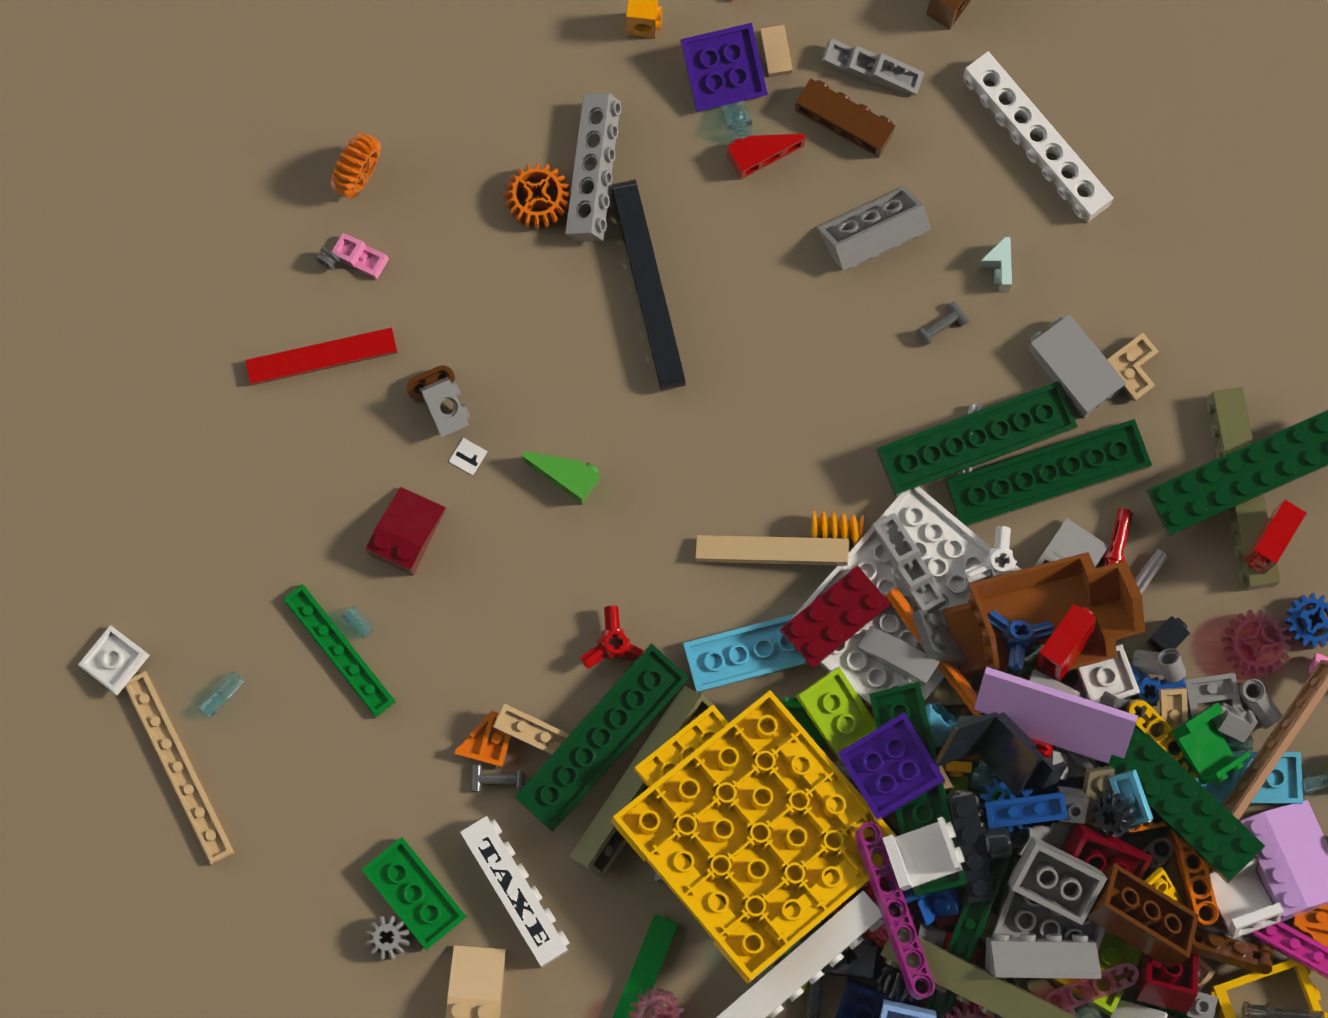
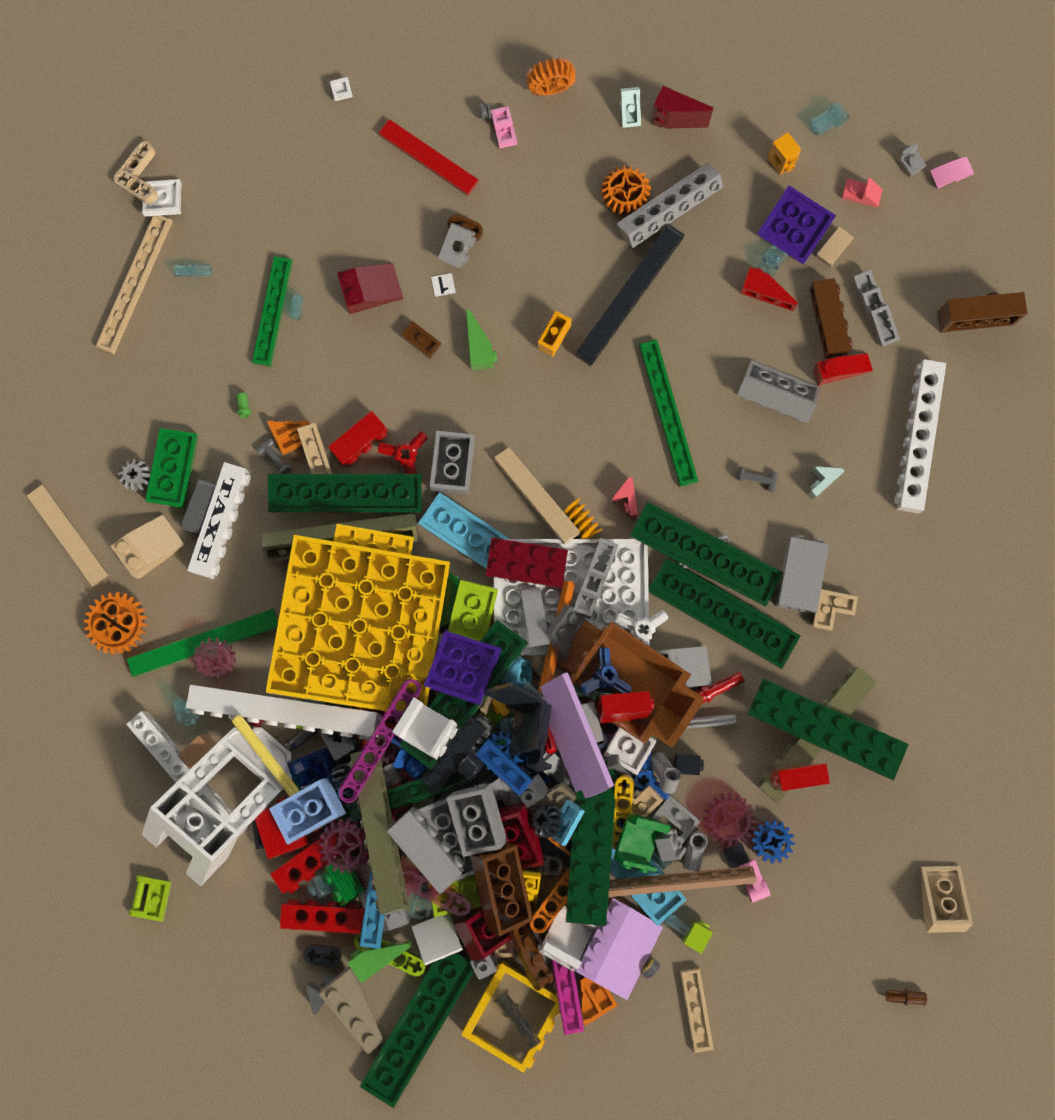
camera: 55 degrees right, 5 degrees up
(60, 670) = (131, 175): none -> tan beam
(168, 380) = (341, 89): none -> white plate
(413, 764) = (243, 406): none -> bright green pin
(456, 117) = (630, 107): none -> light aqua slope
(482, 898) = (198, 506): none -> dark grey beam
(503, 76) = (677, 110): none -> dark red slope
(507, 526) = (421, 339): none -> reddish brown plate
(556, 677) = (358, 439): none -> red brick
(623, 391) = (554, 333): none -> light orange brick
(666, 603) = (452, 462): none -> light grey brick
(800, 352) = (668, 413): none -> green tile
(848, 459) = (627, 493): none -> coral slope
(904, 150) = (842, 368): none -> red slope
(1296, 669) = (735, 855): none -> black tile

